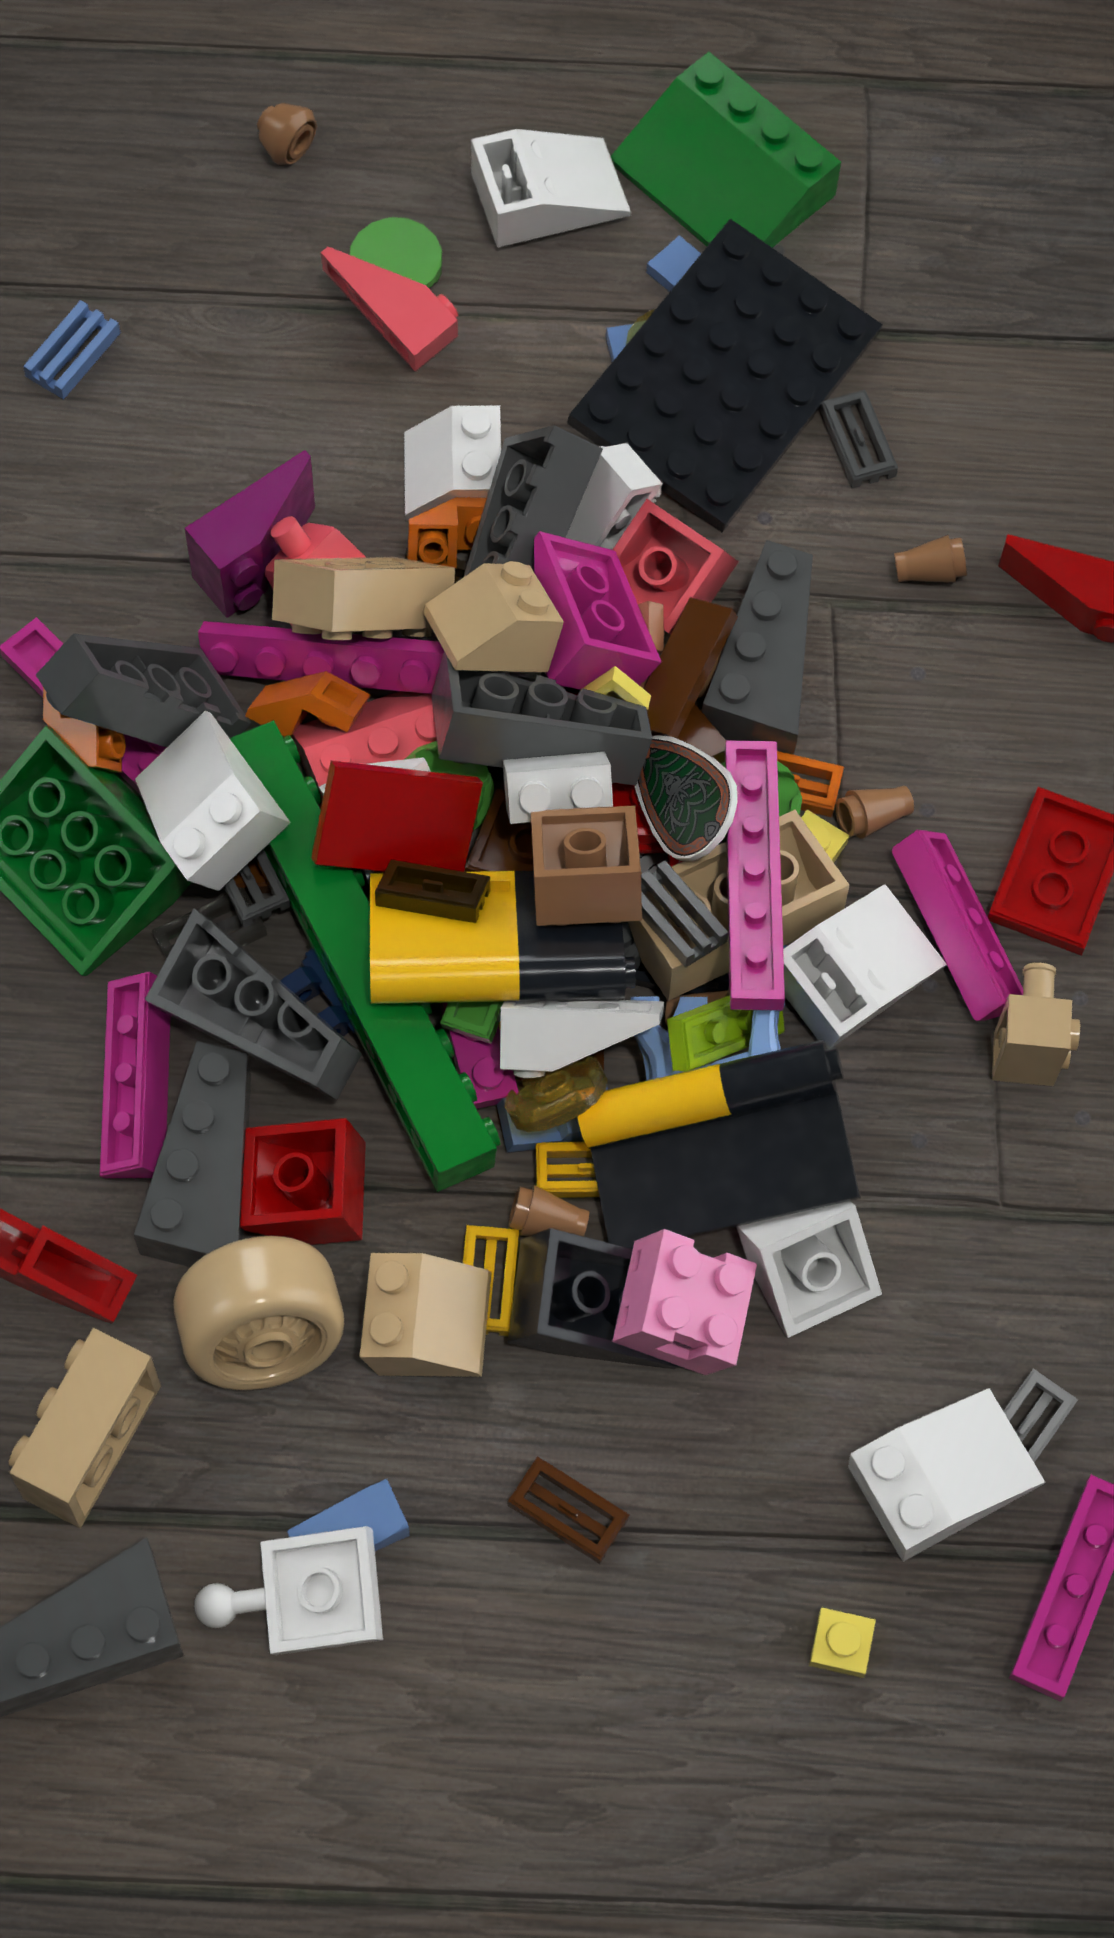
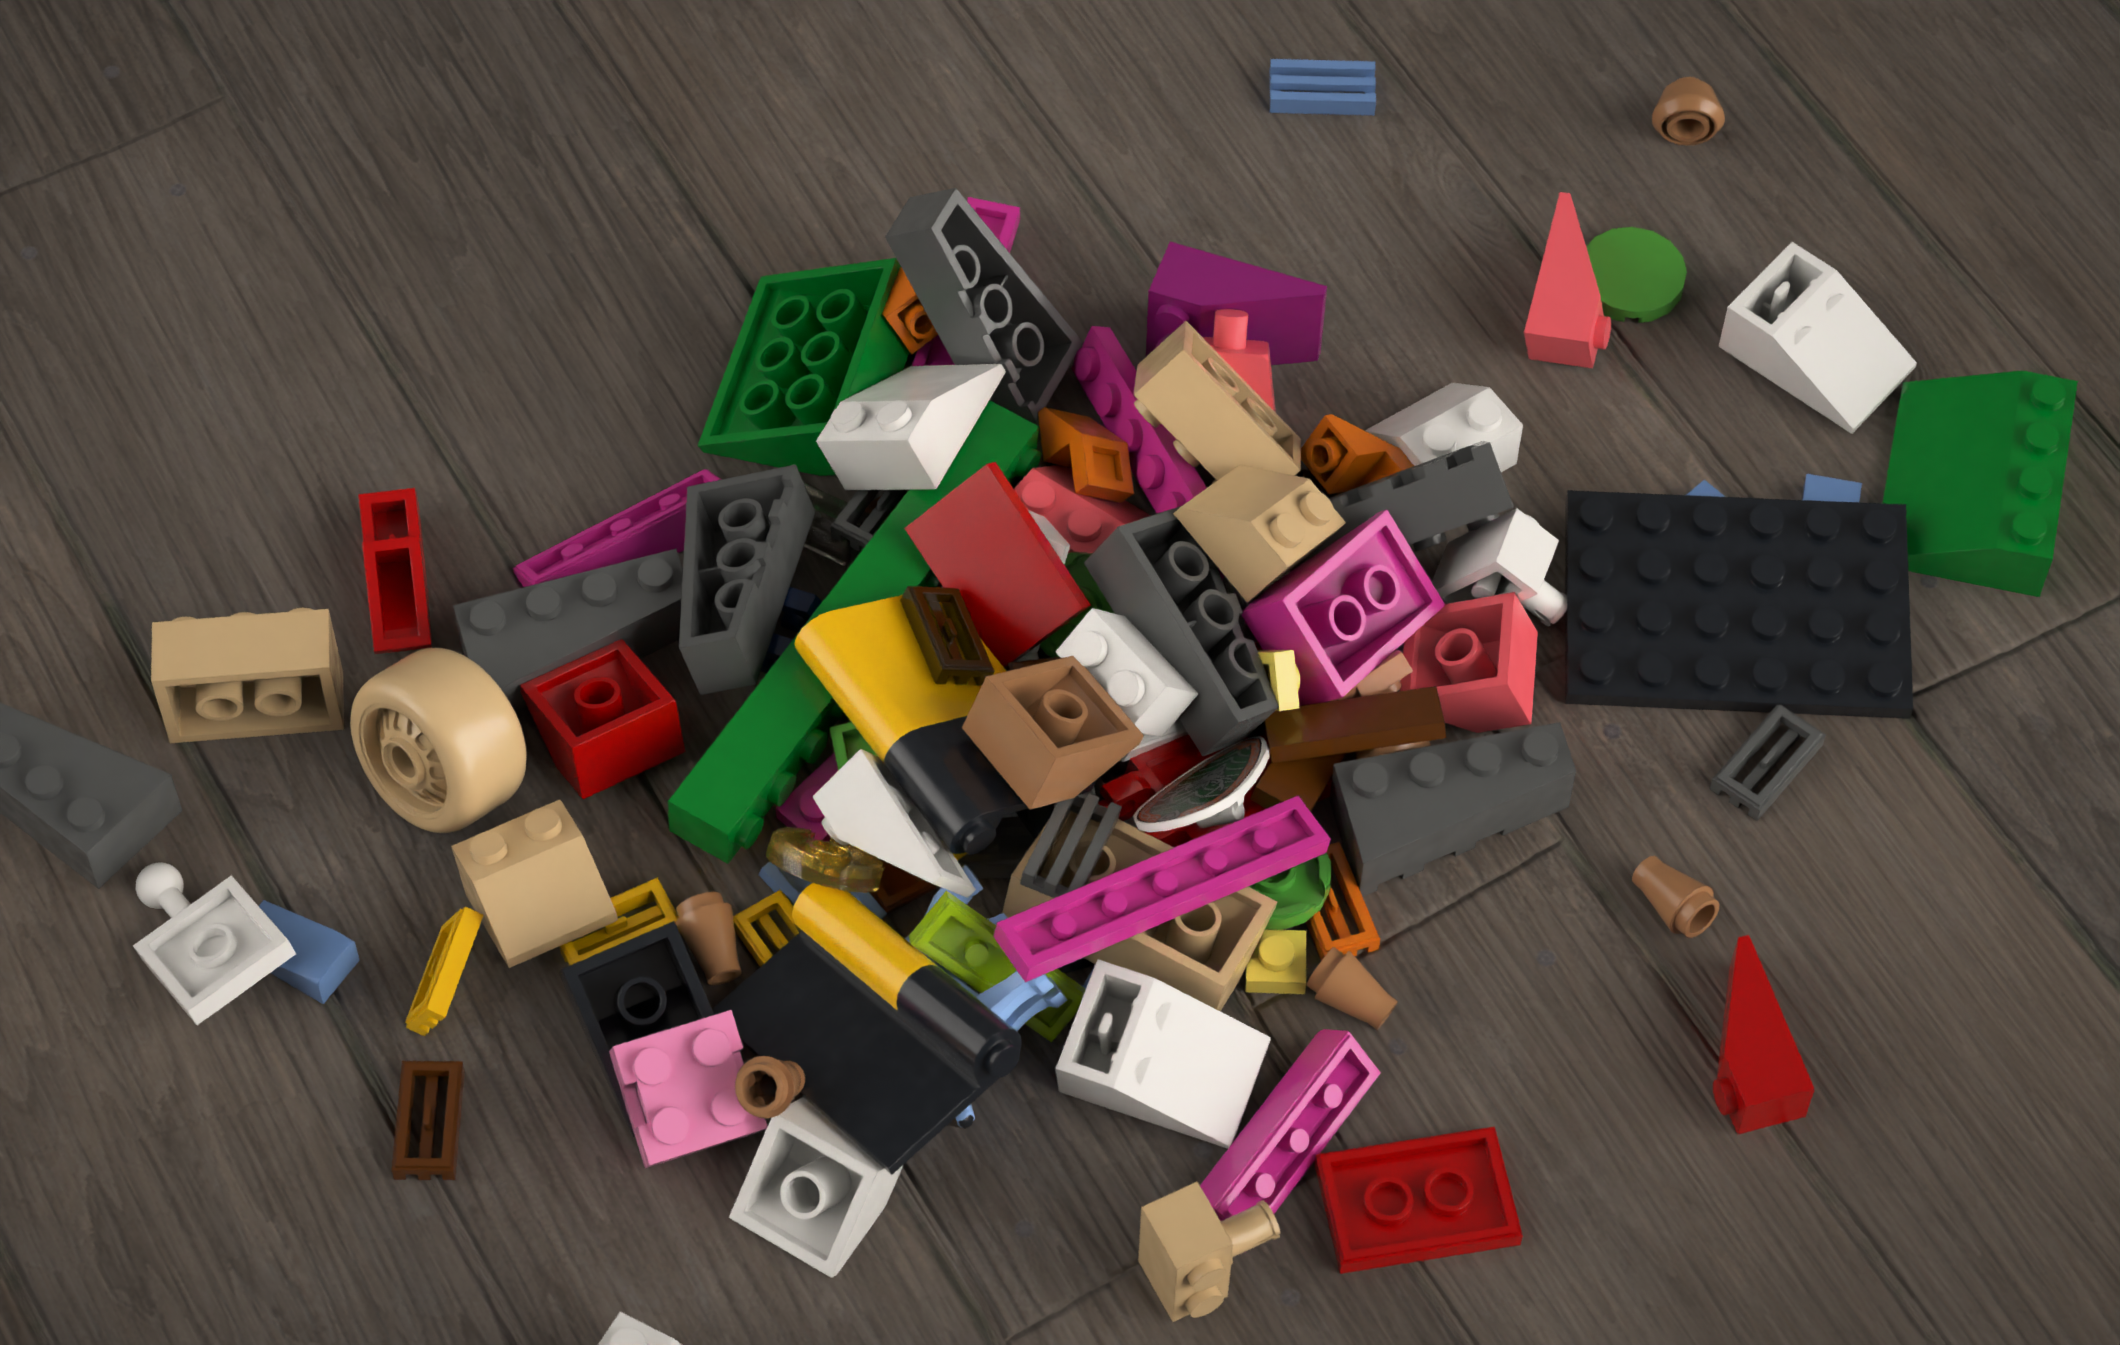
camera: 60 degrees right, 10 degrees down
(452, 1425) = (443, 971): none -> yellow tile
(743, 1238) = (768, 1085): none -> medium nougat cone

